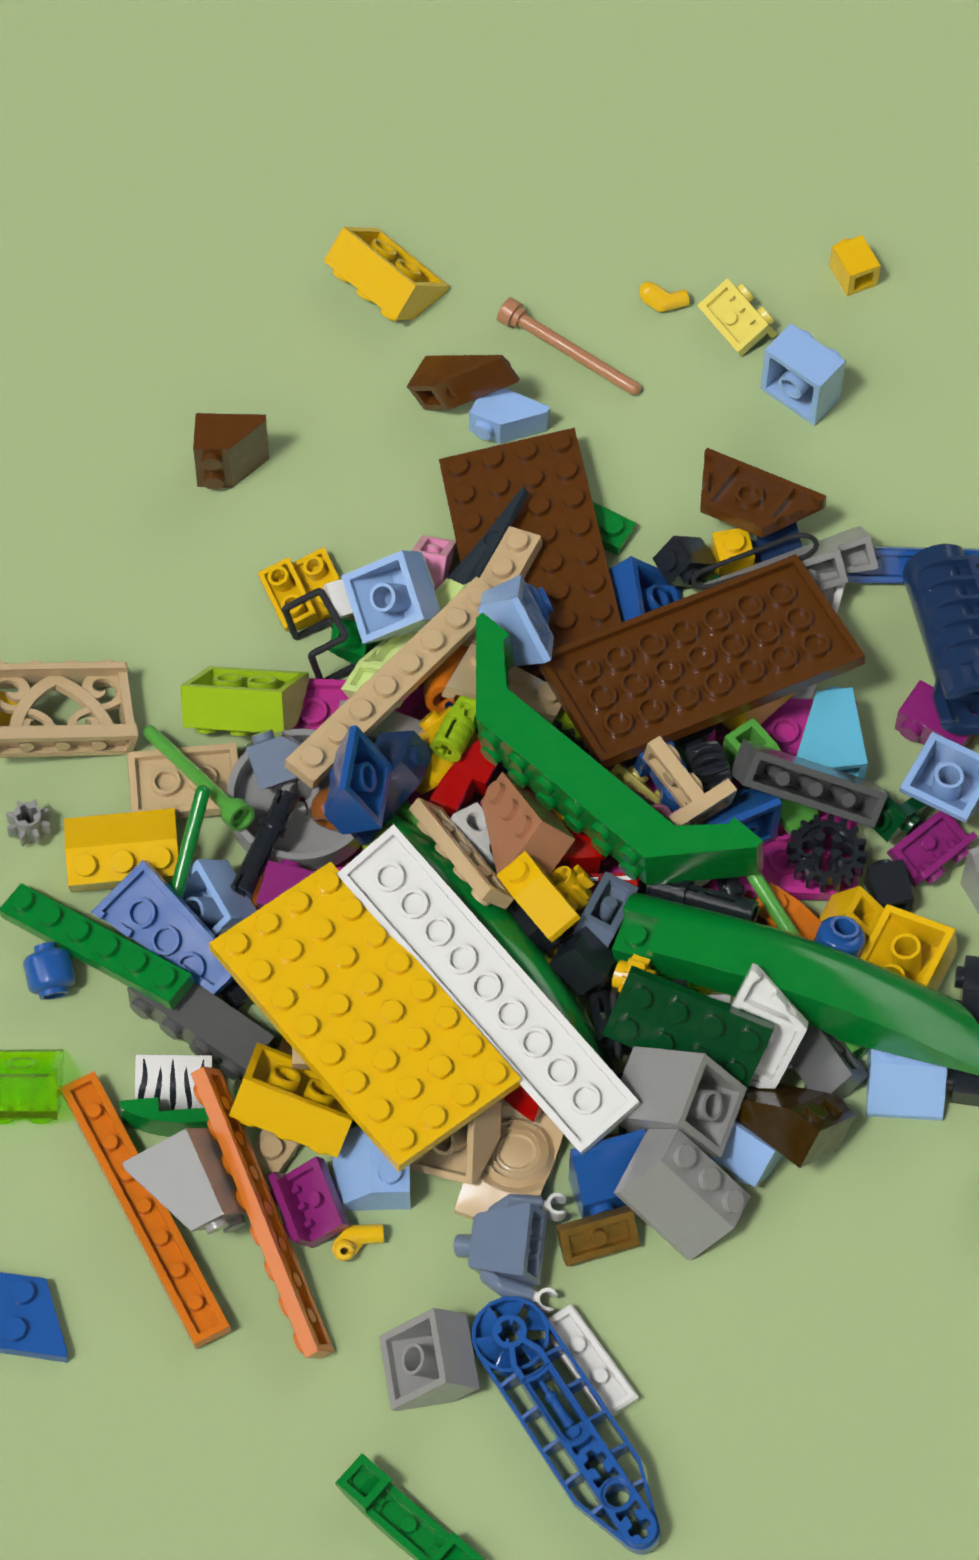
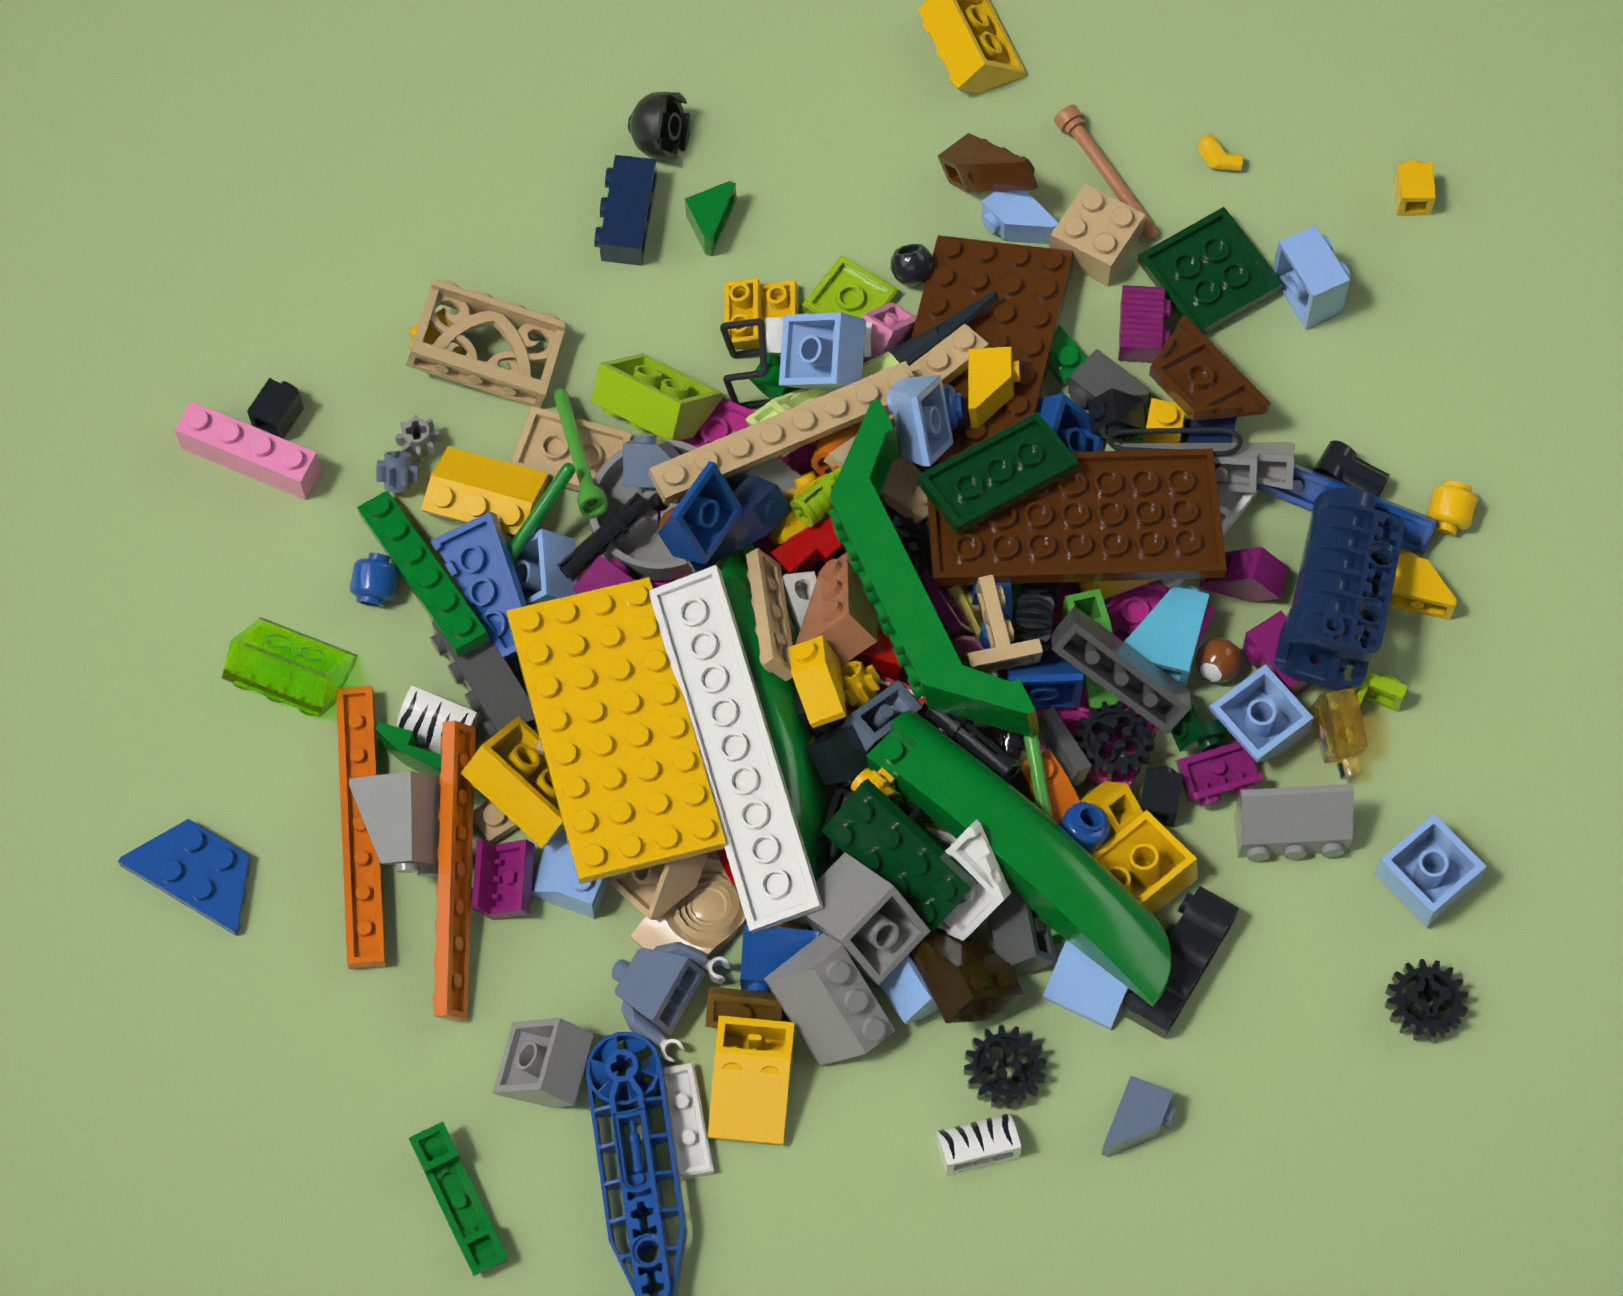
camera: 25 degrees right, 5 degrees up
(24, 861) = (397, 471): none -> sand blue gear
(128, 450) = (660, 125): none -> pearl dark grey cylinder
(132, 539) = (626, 210): none -> dark blue brick
(212, 515) = (710, 212): none -> green slope
(228, 448) = (747, 155): reddish brown slope -> none
(353, 1239) = (531, 925): yellow arm -> none
(378, 536) = (849, 290): none -> lime tile
(428, 493) = (911, 264): none -> black piece
(560, 567) = (990, 381): none -> yellow slope
(590, 402) = (1098, 232): none -> tan brick
(614, 645) = (997, 472): none -> dark green plate
(636, 1296) = (751, 1080): none -> yellow slope
(653, 530) = (1099, 375): none -> dark grey slope
(667, 471) = (1142, 323): none -> magenta brick
(705, 402) = (1210, 271): none -> dark green plate
(736, 317) = (1279, 198): light yellow bracket -> none
(789, 877) = (1064, 747): none -> dark grey tile
(874, 1271) = (978, 1144): none -> white brick
(883, 746) = (1218, 660): none -> dark orange piece
(884, 661) = (1250, 576): none -> magenta slope
(885, 1187) = (984, 1060): none -> black gear
(906, 530) = (1341, 463): none -> black piece

